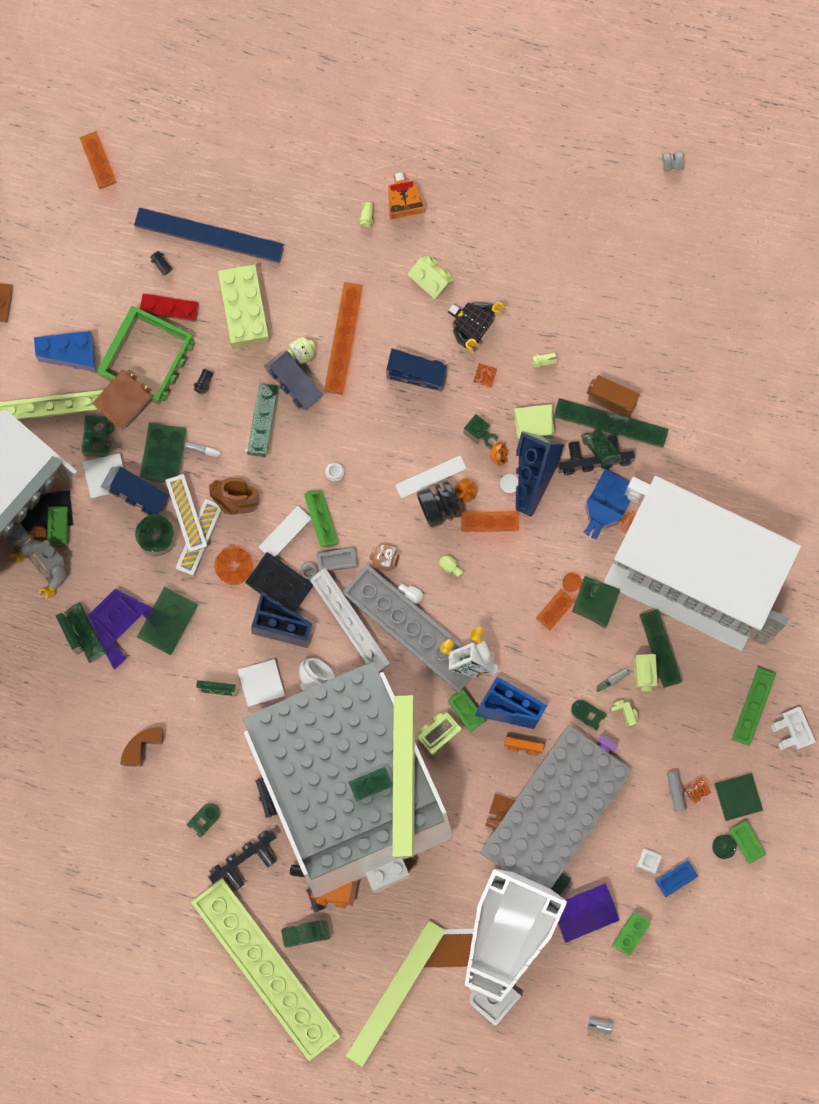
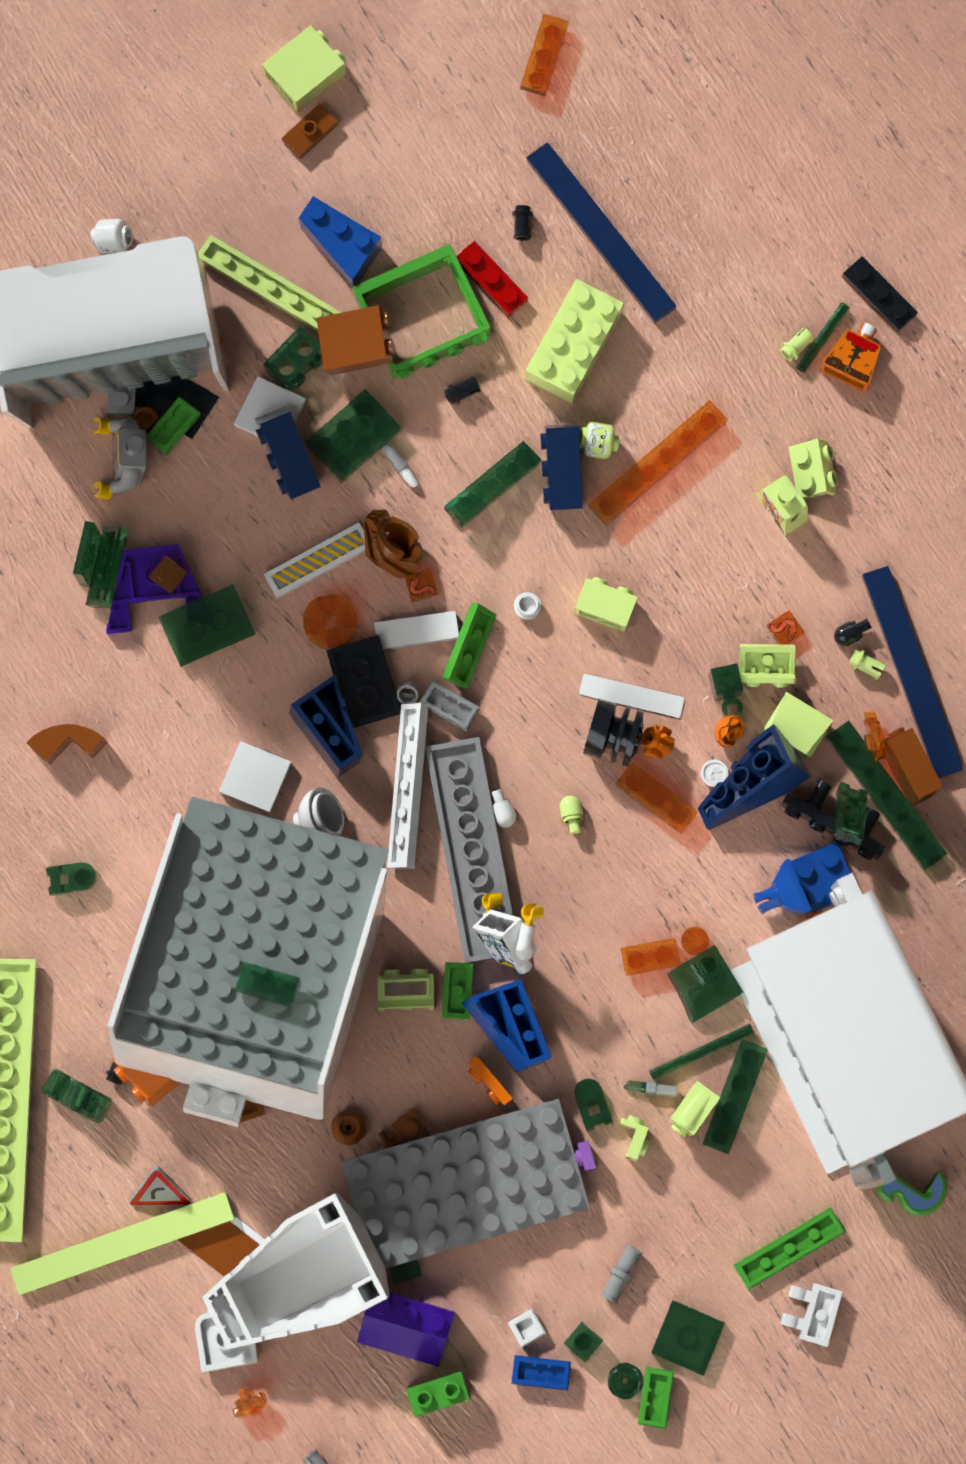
camera: 40 degrees right, 0 degrees up
(123, 609) = (168, 574): none -> clear orange tile
(148, 527) = (269, 505): clear green brick -> none
(186, 513) = (324, 522): tile -> none
(217, 688) = (199, 743): clear green tile -> none
(228, 869) = (51, 954): black plate -> none
(267, 506) = (421, 585): none -> clear orange tile
(377, 200) = (822, 338): none -> clear green piece
(377, 437) = (606, 604): none -> yellowish green brick
(384, 557) = (504, 745): nougat head -> none
(389, 152) = (879, 294): none -> black plate
(392, 948) = (159, 1190): none -> piece
(403, 776) = (310, 1006): yellowish green tile -> none
(415, 370) = (709, 562): dark blue wedge -> none
(430, 307) = (784, 503): none -> yellowish green torso
(461, 833) = (345, 1136): none -> dark orange plate
(473, 322) = (820, 558): black torso -> none
(491, 402) = (767, 664): none -> yellowish green bracket
(521, 349) = (850, 632): none -> black cylinder
(534, 1022) = (249, 1403): none -> clear orange plant
(570, 344) = (912, 672): none -> dark blue tile
(581, 397) = (874, 739): none -> clear orange plate
(623, 639) = (701, 1052): none -> clear green piece
(685, 844) = (583, 1341): none -> clear green plate
(697, 790) = (646, 1292): clear orange wheel -> none
(800, 627) = (913, 1200): none -> animal

